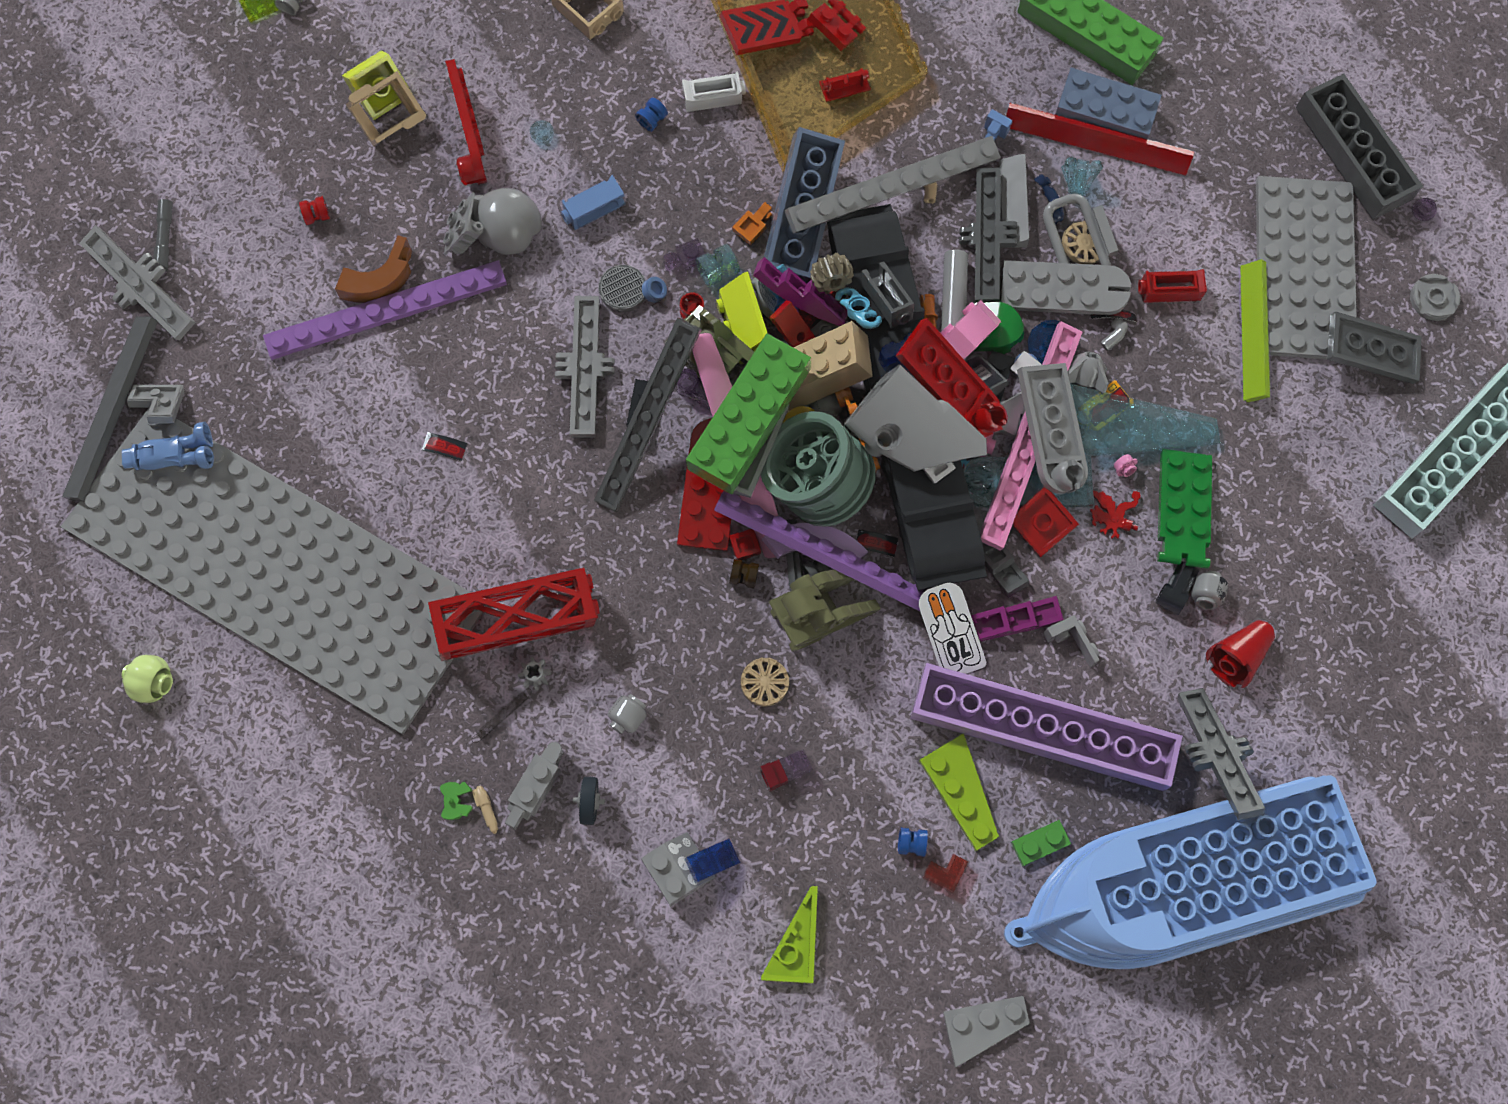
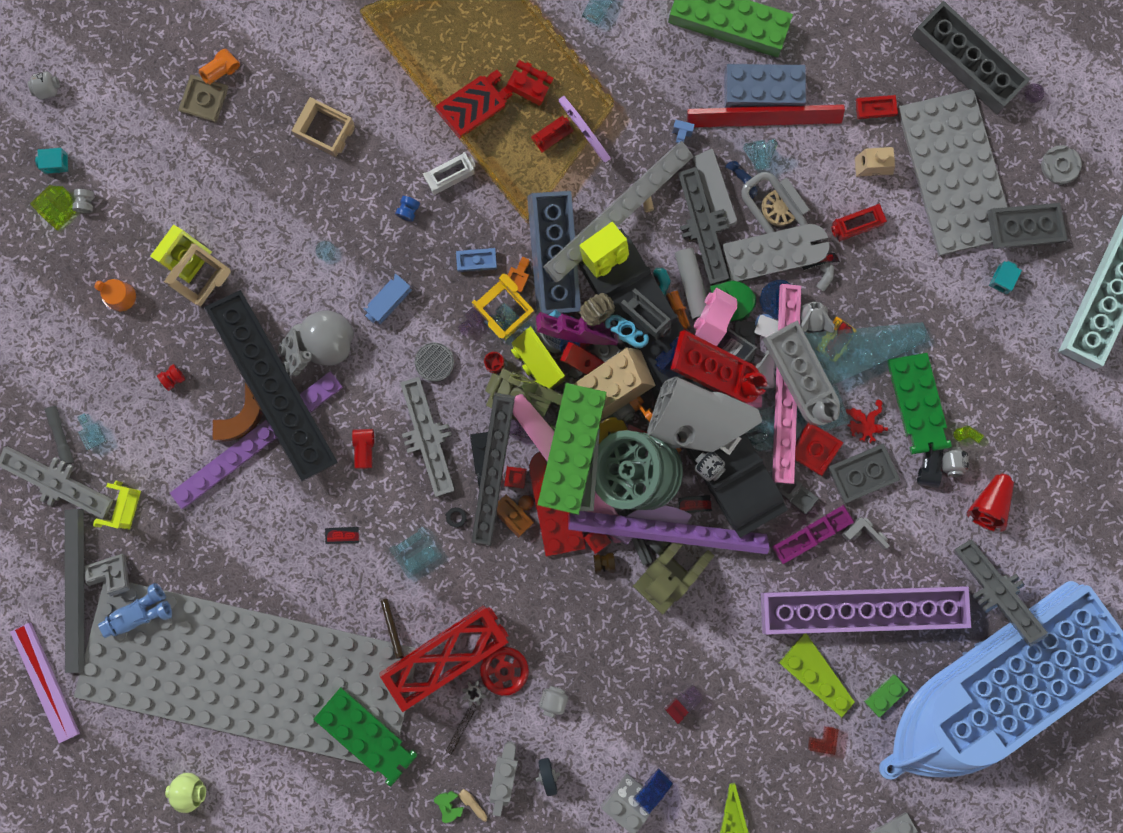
camera: 15 degrees left, 10 degrees up
(34, 501) = (45, 682): none -> lavender tile
(200, 243) = (91, 434): none -> clear light blue plate
(203, 332) = (124, 507): none -> neon yellow piece
(288, 103) = (116, 294): none -> orange hat
(385, 679) = (364, 736): none -> green hinge
(424, 251) = (271, 385): none -> black plate
(464, 559) = (392, 628): none -> dark brown bar
(469, 166) = (282, 302): red plate -> none
(507, 349) = (363, 444): none -> red piece
(526, 499) = (418, 558): none -> clear light blue plate
(586, 476) = (448, 515): none -> black piece
(592, 680) = (497, 687): none -> red plate
(654, 289) = (459, 356): medium blue tile -> none
(656, 485) = (513, 514): none -> dark orange plate
(672, 443) = (515, 477): none -> red plate
(710, 192) = (476, 260): none -> medium blue plate
(736, 221) = (504, 283): none -> yellow piece
(764, 682) = (646, 641): tan wheel -> none
(861, 209) = (604, 250): none -> neon yellow brick
(879, 75) = (576, 118): none -> lavender tile
(907, 488) = (709, 466): none -> light grey head
(912, 841) = (793, 727): blue wheel -> none
(921, 275) = (663, 279): none -> teal arm
(951, 629) = (773, 558): sticker -> none
(1092, 569) = (863, 473): none -> dark grey plate
(1125, 465) = (865, 382): bright pink plate -> none
(1213, 224) = (877, 162): none -> tan torso
(1232, 168) = (876, 107): none -> red plate
(1234, 562) = (967, 432): none -> clear neon green arm
(1254, 331) = (931, 239): lime tile -> none
(1331, 399) = (1005, 277): none -> teal brick

